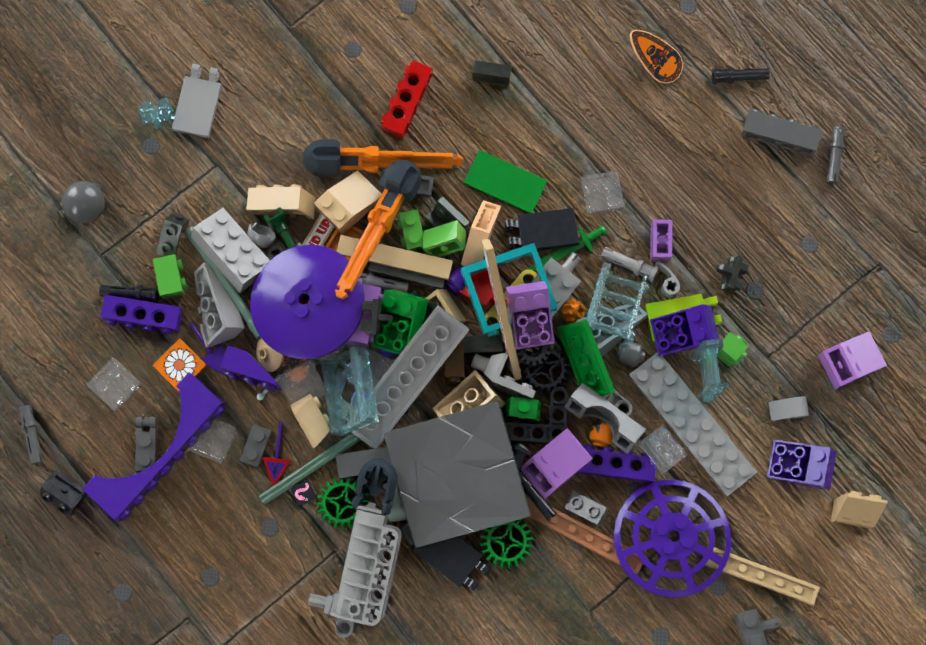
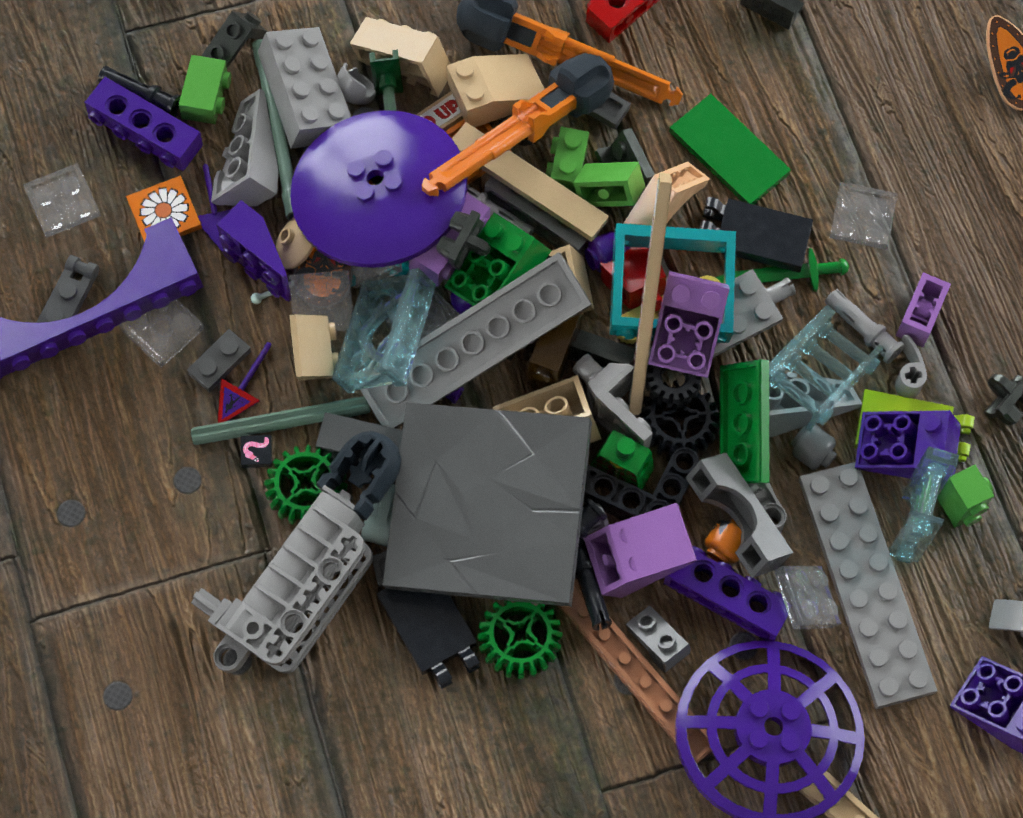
camera: 20 degrees right, 10 degrees down
(573, 311) = (753, 350): orange gear -> none

